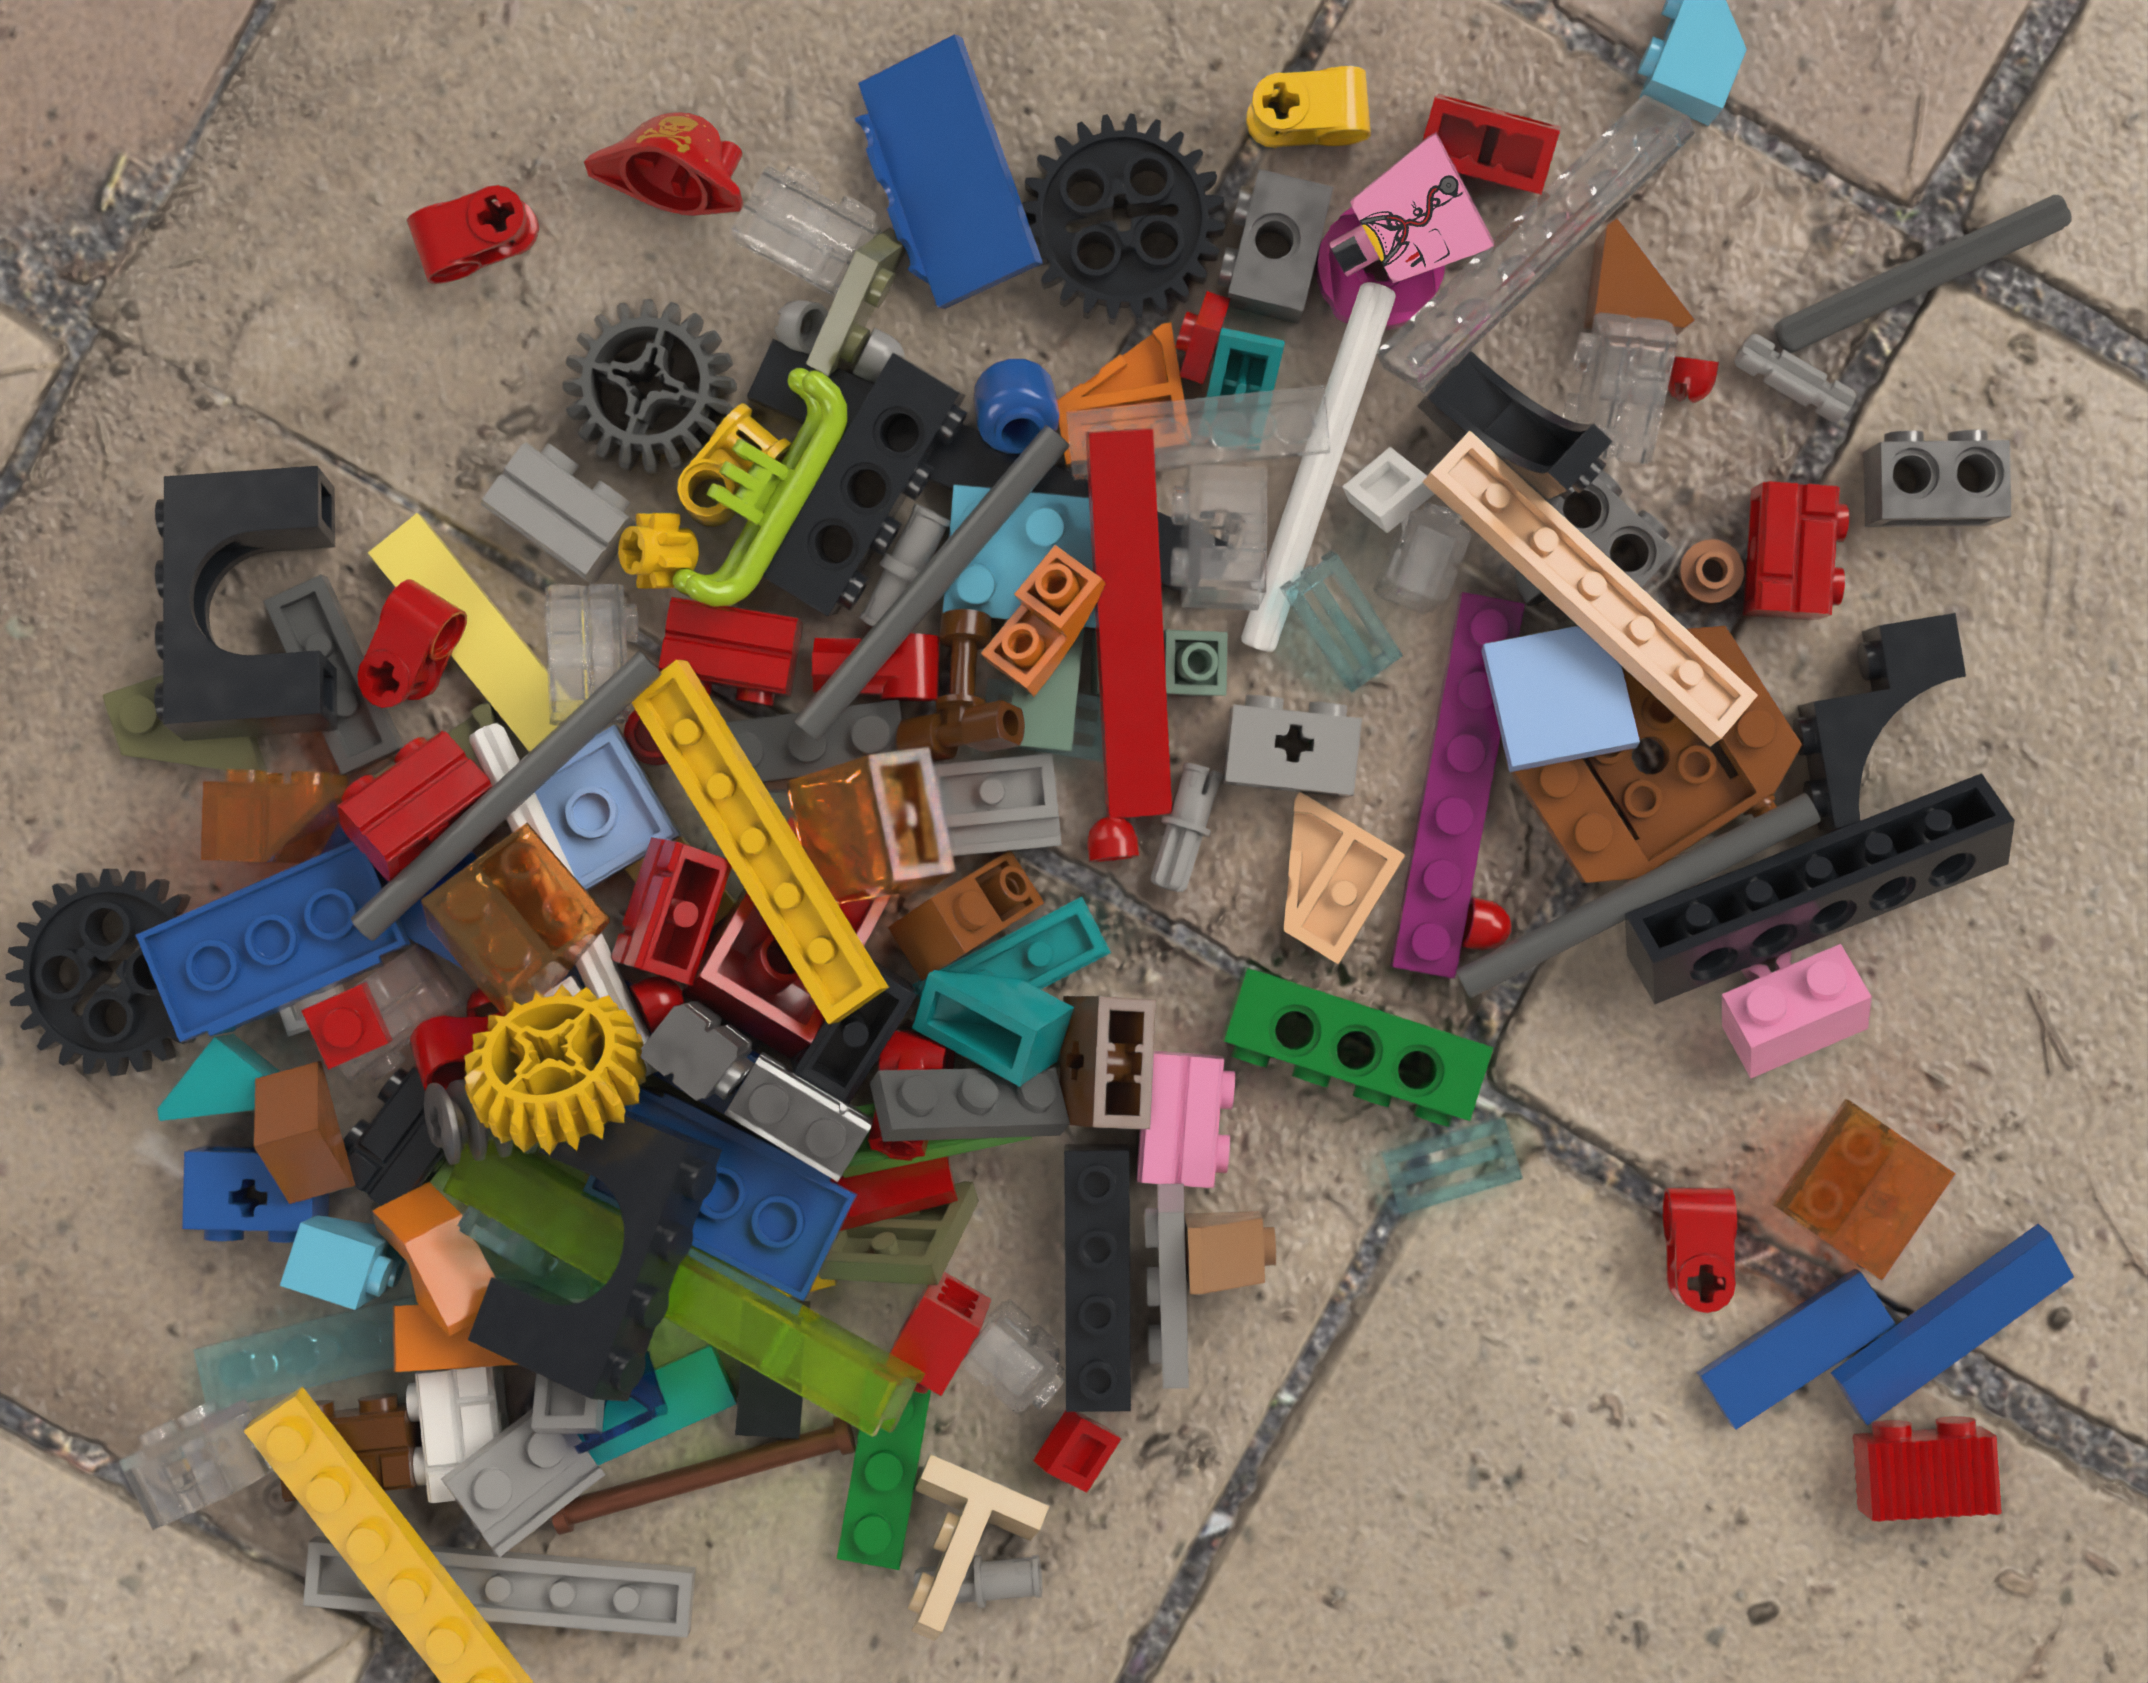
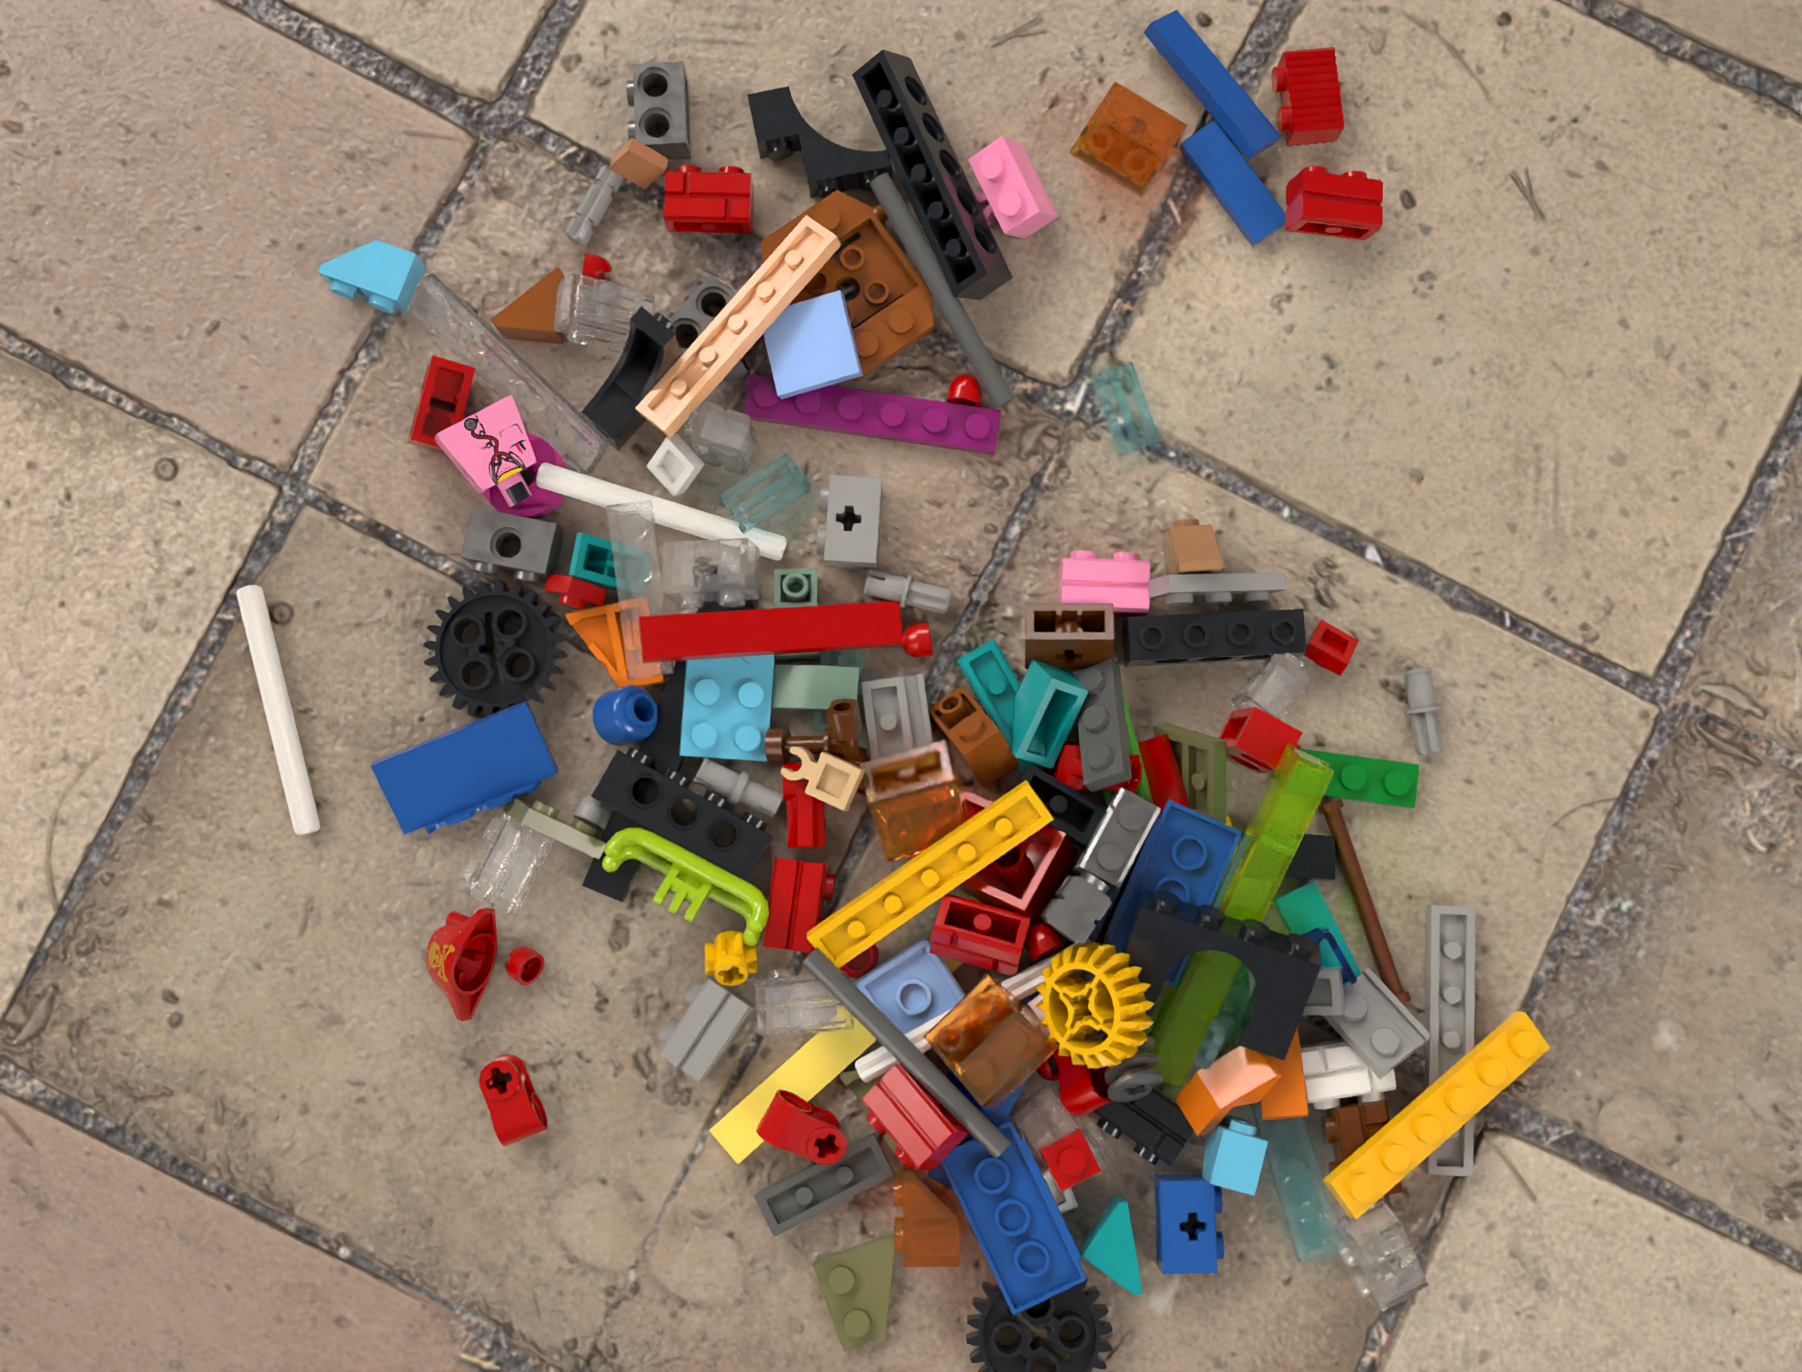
camera: 95 degrees left, 5 degrees down
(207, 530) = (724, 1277): black arch -> none
(300, 1133) = (1146, 1189): dark orange slope -> none
(656, 356) = (609, 989): dark grey gear -> none
(662, 254) = (518, 970): none -> red hinge
(717, 451) = (664, 919): yellow piece -> none
(785, 751) = (858, 846): dark grey plate -> none
(790, 322) = (572, 865): light grey hinge -> none
(907, 701) = (829, 778): none -> tan plate
(931, 582) = (748, 765): dark grey piece -> none
(959, 1535) = (1393, 720): tan bracket -> none
(1044, 627) = (772, 686): orange slope -> none
(1321, 107) = (418, 519): yellow piece -> none
(1333, 878) = (937, 492): light nougat wing -> none
(1455, 1061) = (1058, 407): green brick -> none
(1697, 585) = (728, 265): nougat plate -> none
(1702, 1232) = (1164, 244): red piece -> none
(1754, 1498) = (1334, 204): none -> red brick
(1854, 446) = (638, 163): none -> nougat tile
(1922, 273) = (523, 126): dark grey axle -> none

